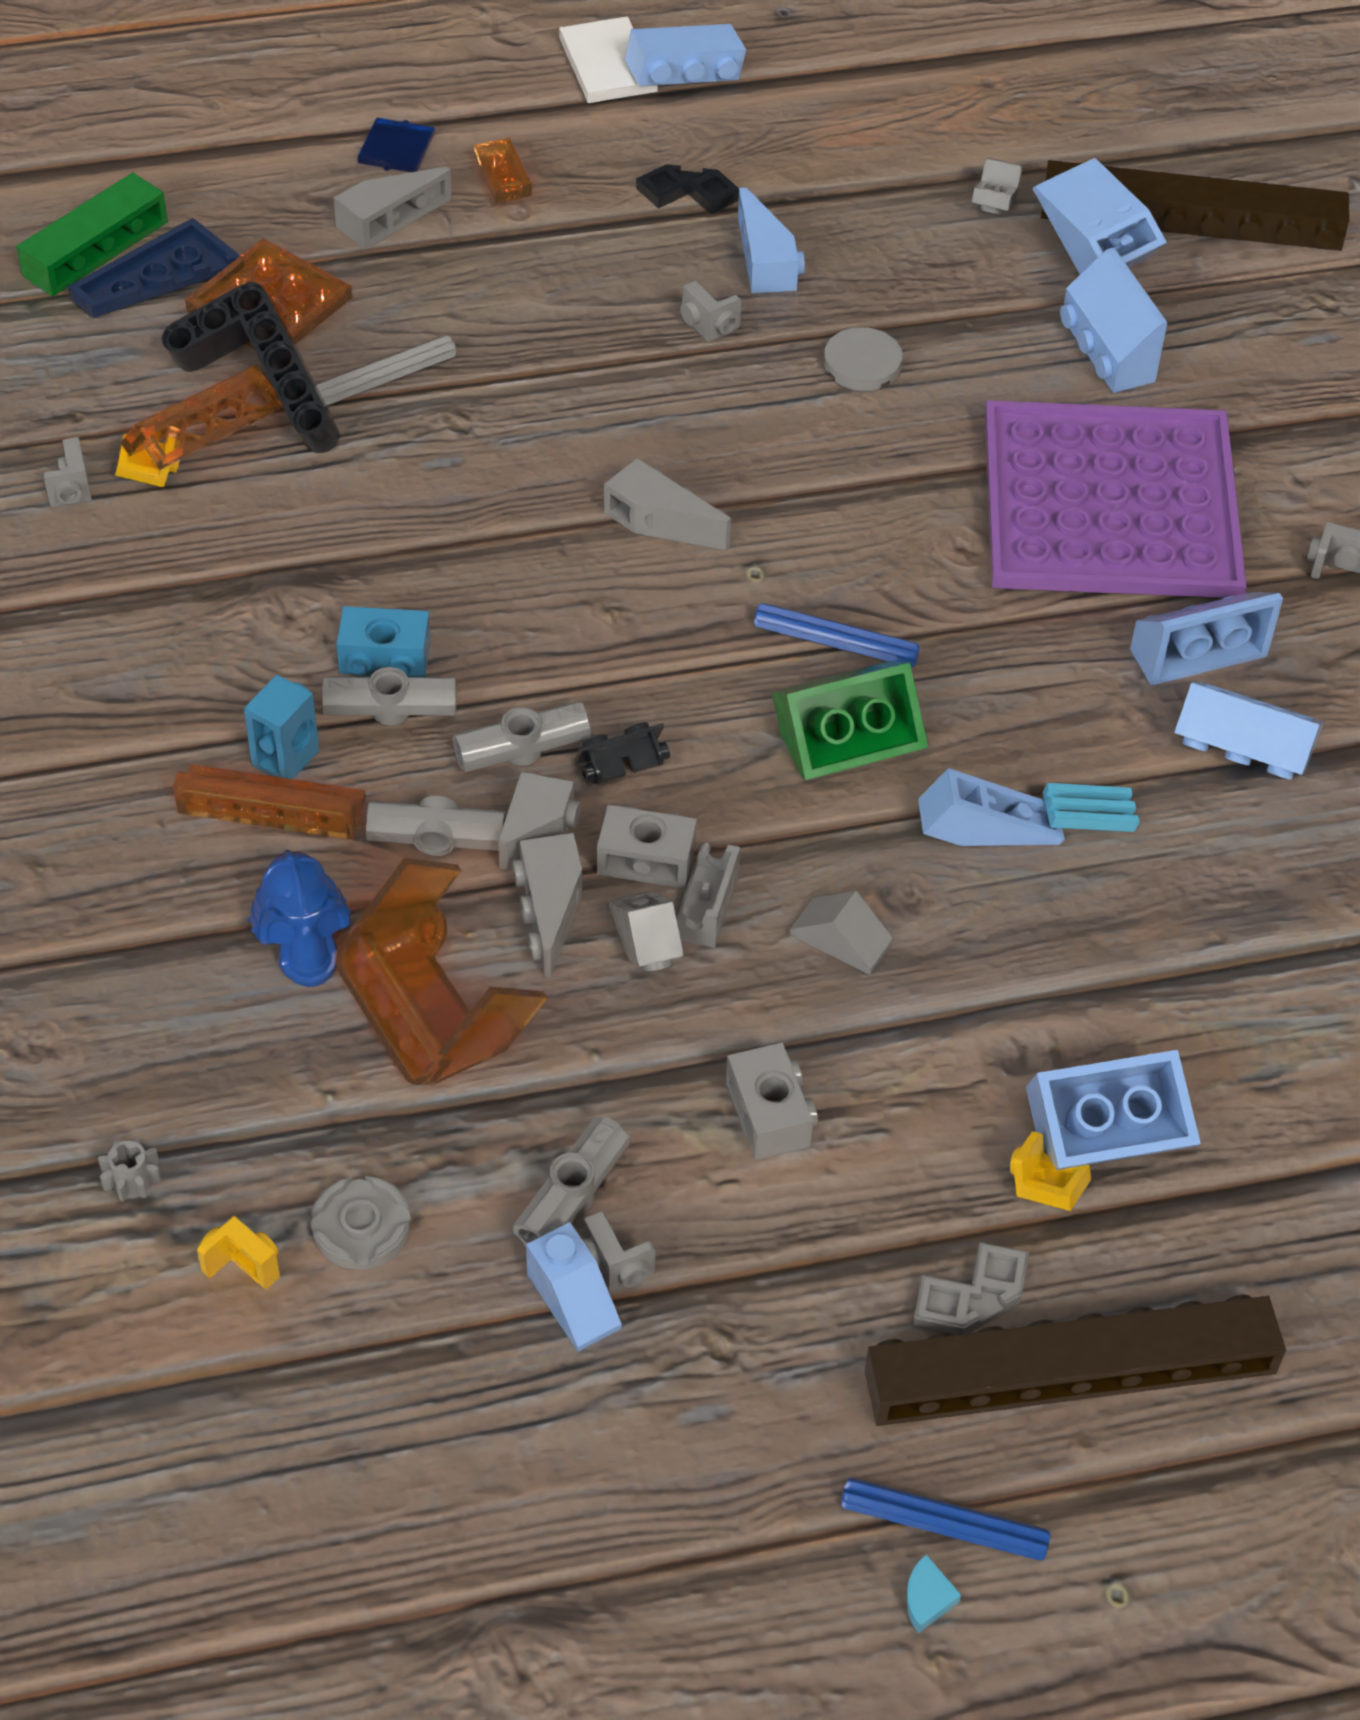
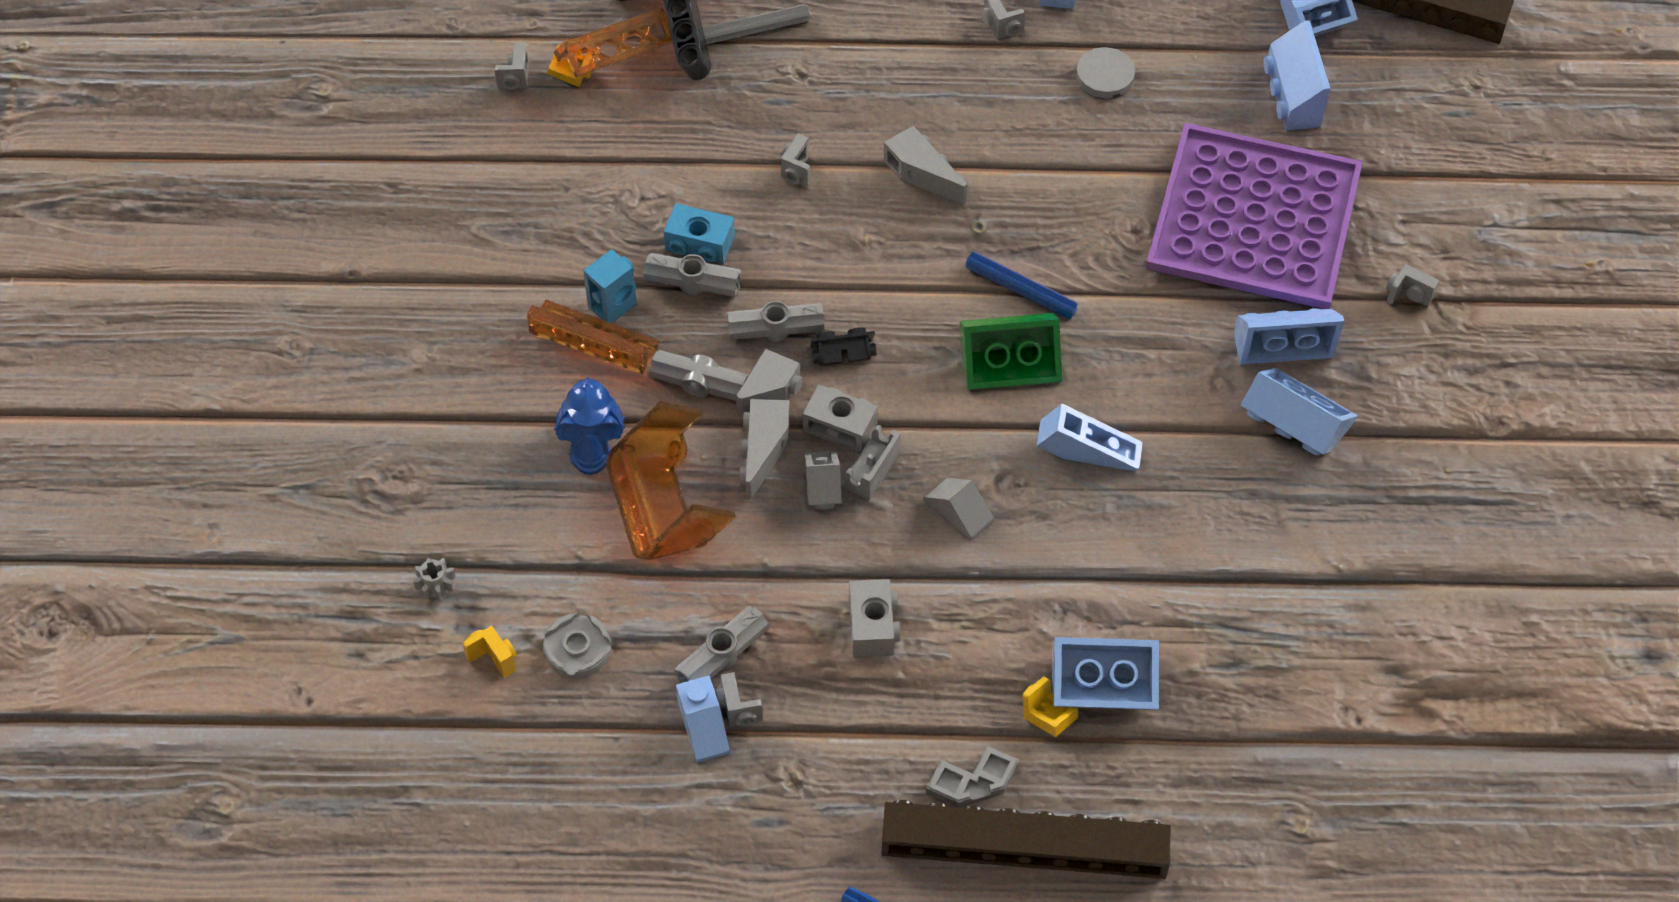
camera: 15 degrees right, 5 degrees up
(488, 535) = (793, 161): none -> light grey bracket
(1089, 801) = (1163, 444): medium azure tile -> none

